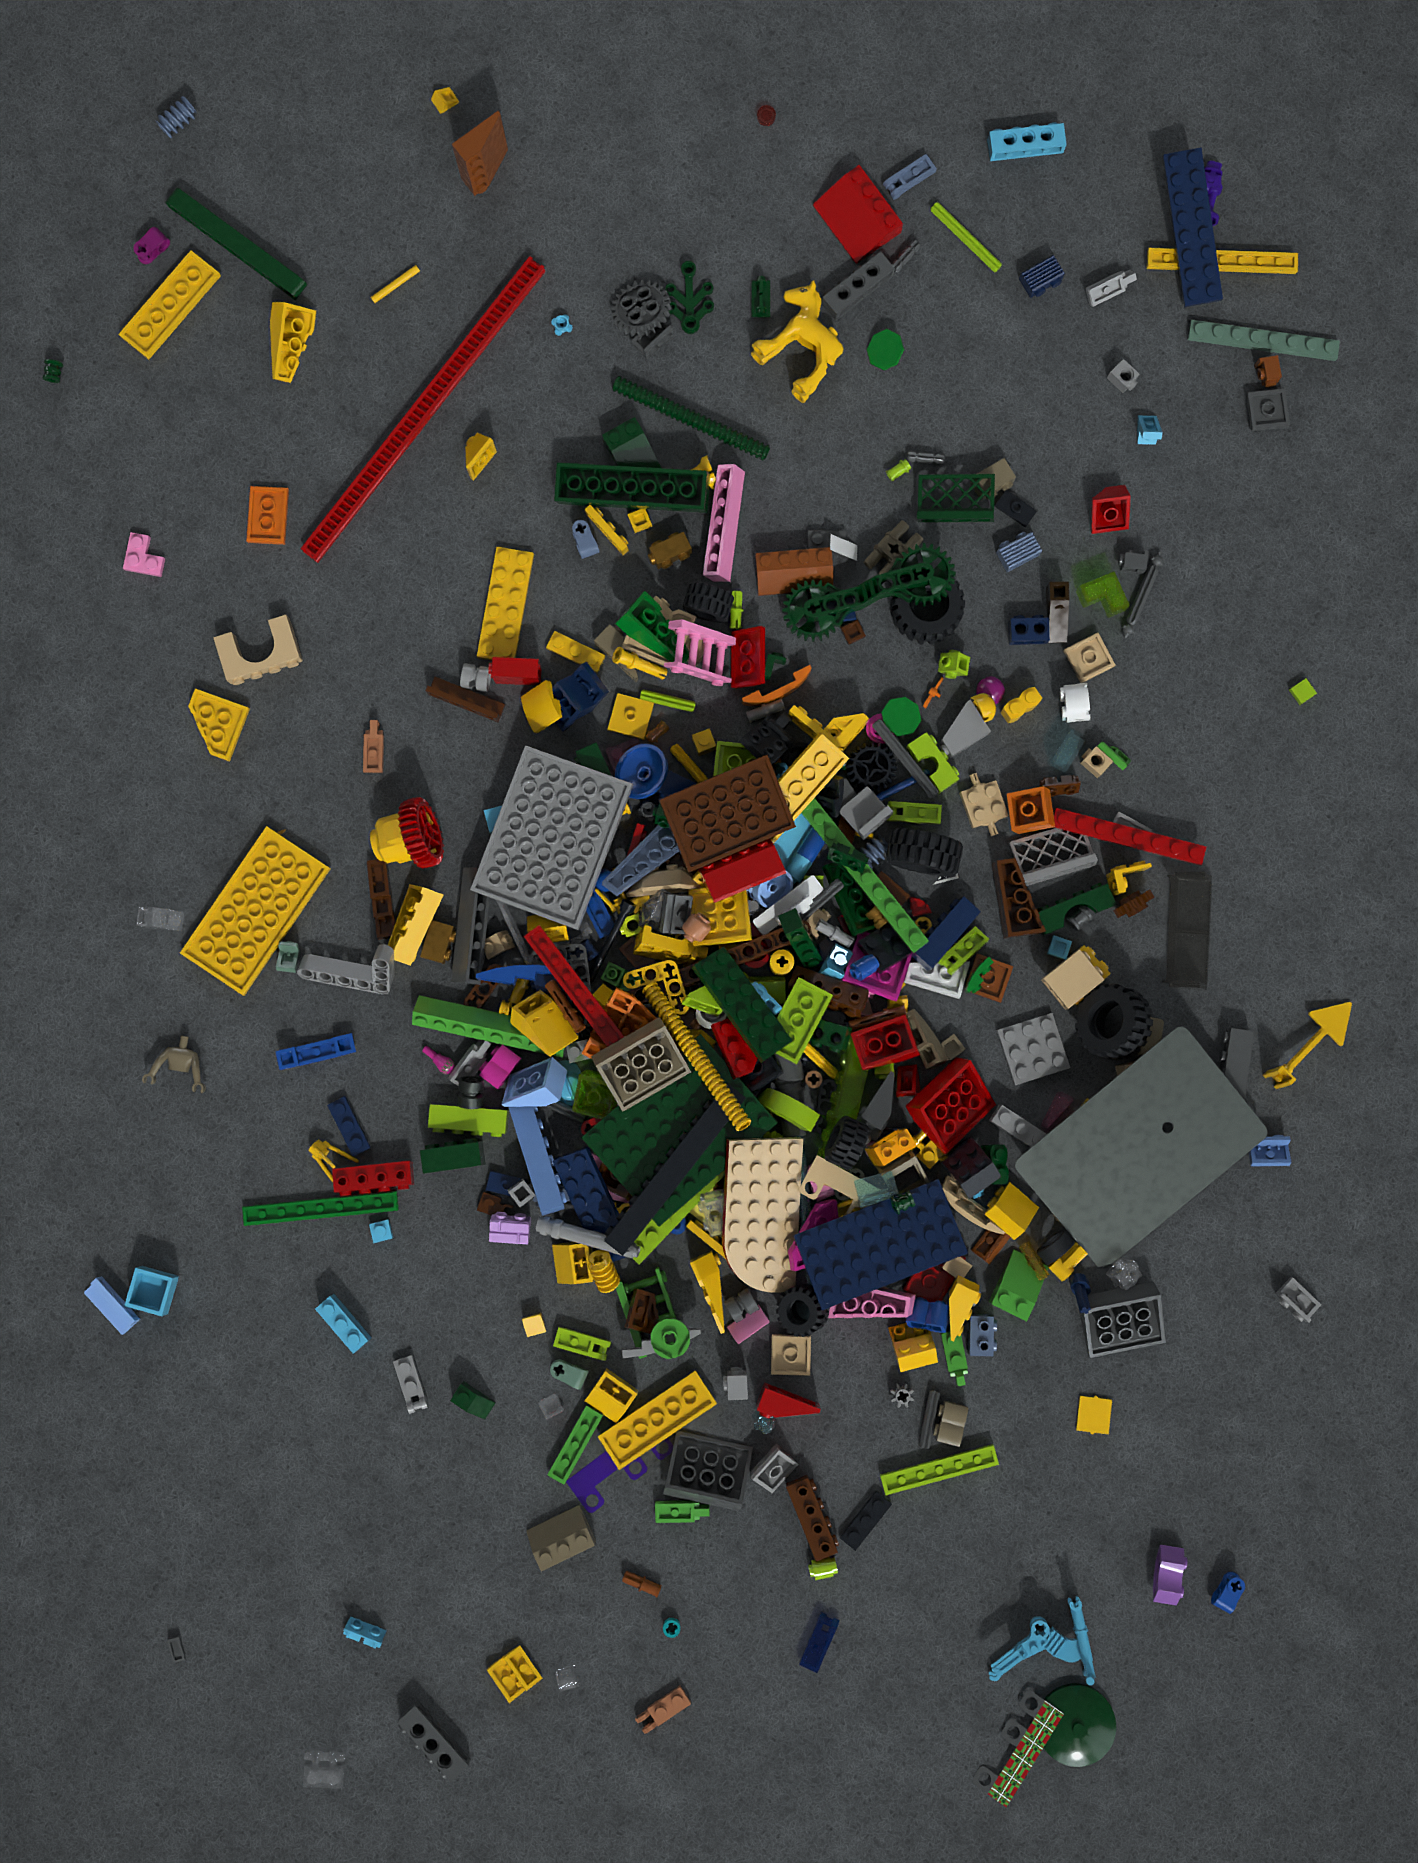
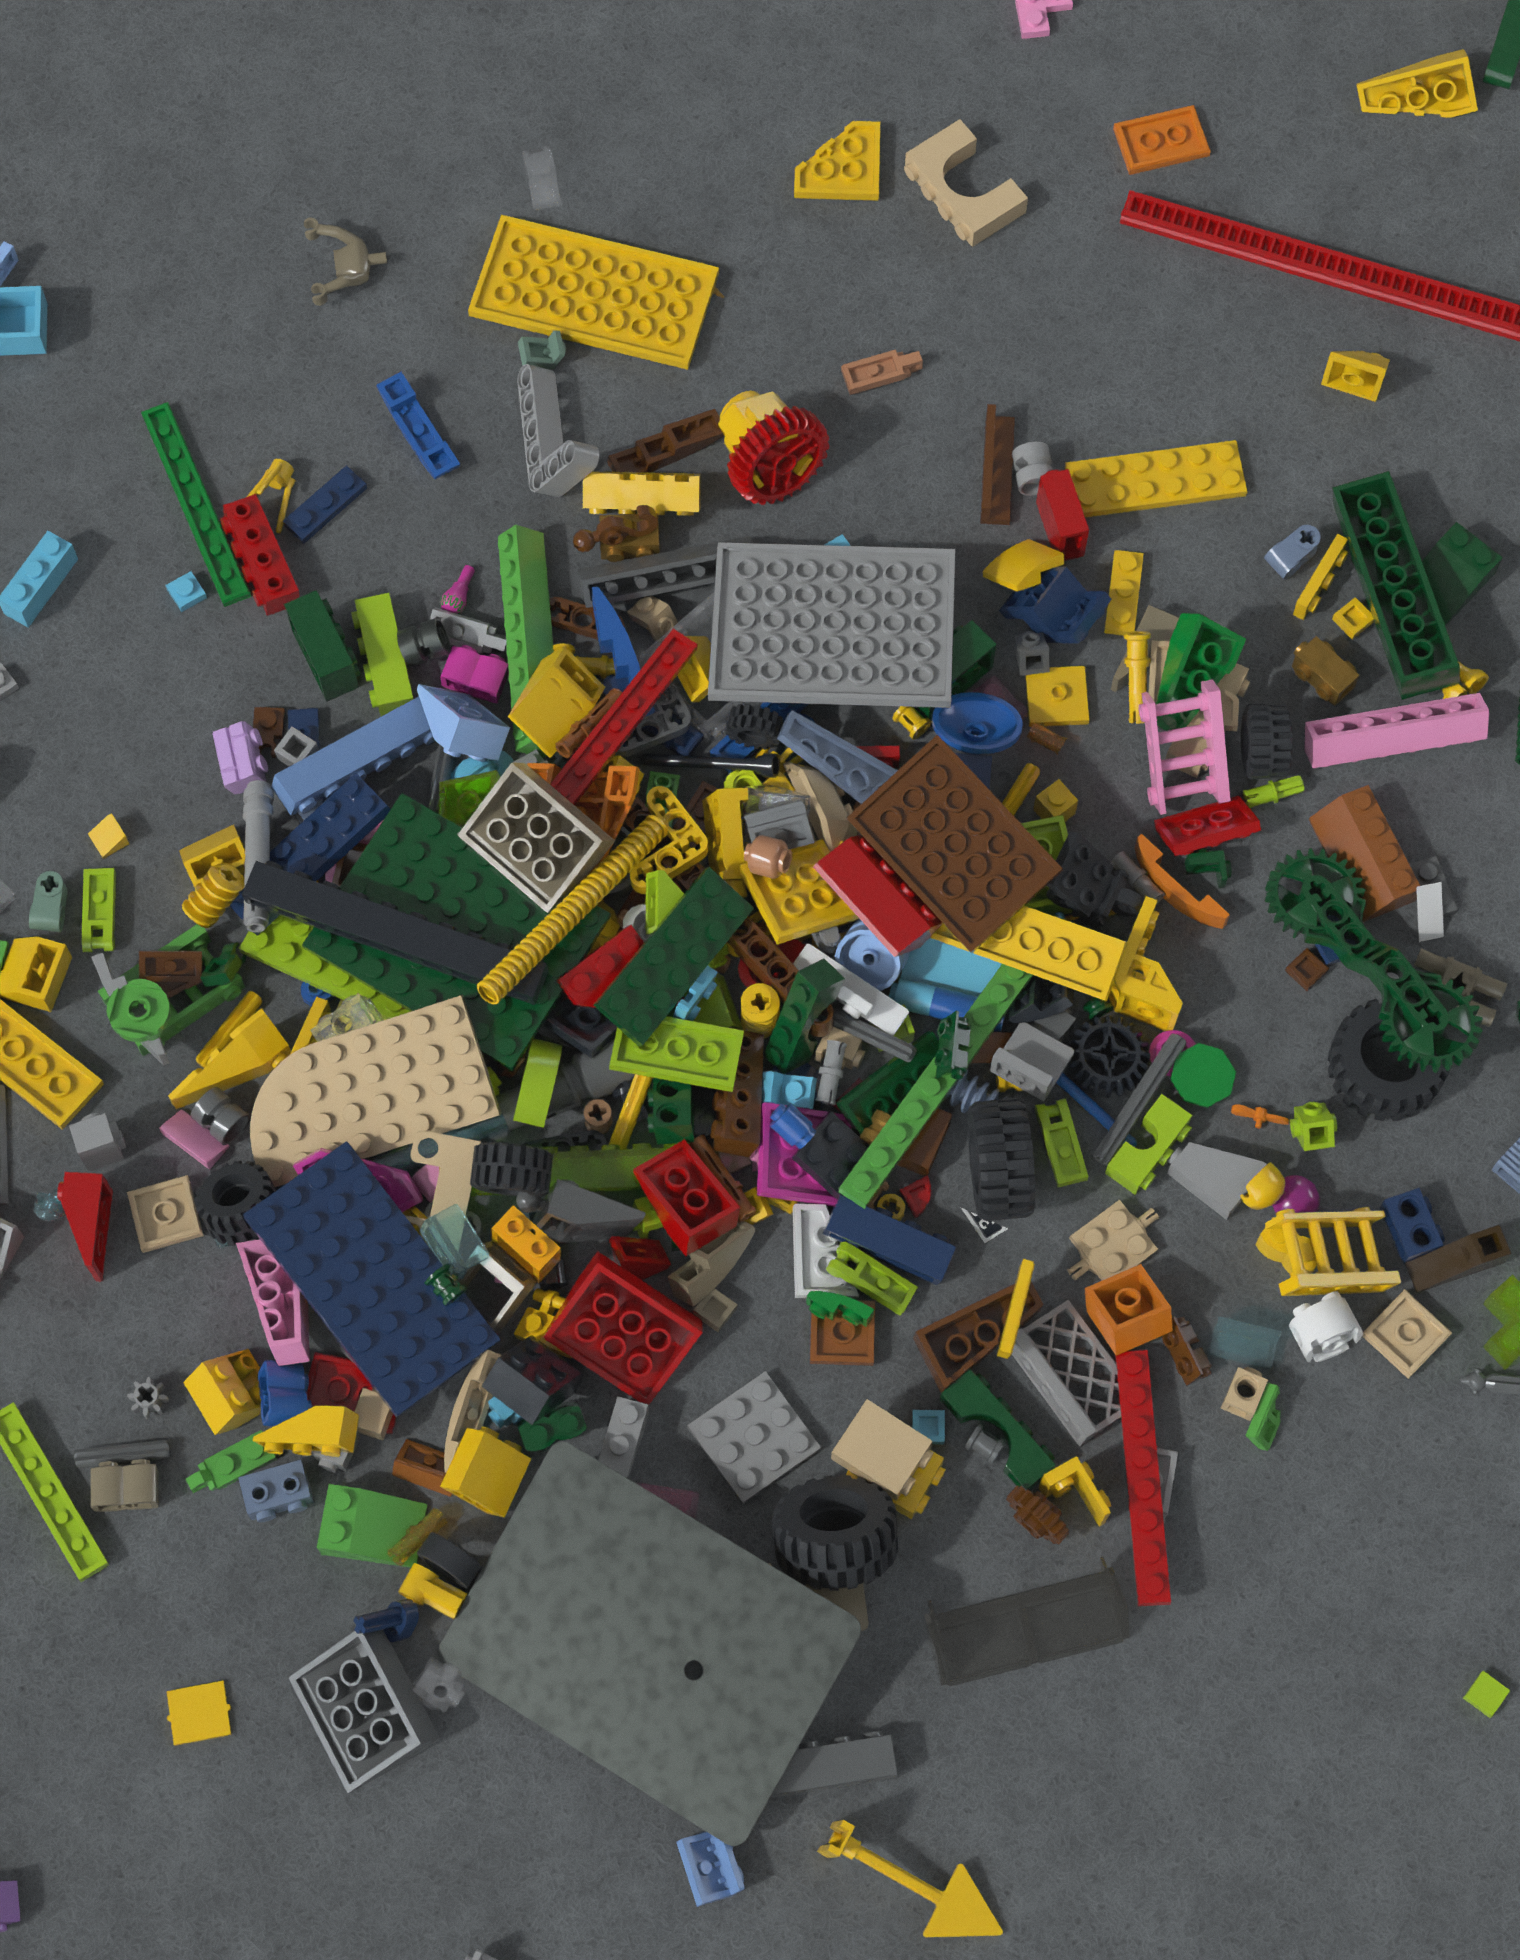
camera: 70 degrees right, 15 degrees down
(436, 951) = (614, 529): none -> reddish brown piece
(596, 722) = (1029, 645): none -> dark grey brick
(599, 906) = (754, 726): none -> black tyre
(650, 1277) = (224, 968): none -> dark green plate
(667, 700) = (1100, 739): lime axle -> none
(685, 1284) = (222, 1037): none -> yellow axle
(1016, 875) = (1016, 1308): none -> yellow tile
(1053, 676) = (1326, 1279): none -> yellow fence

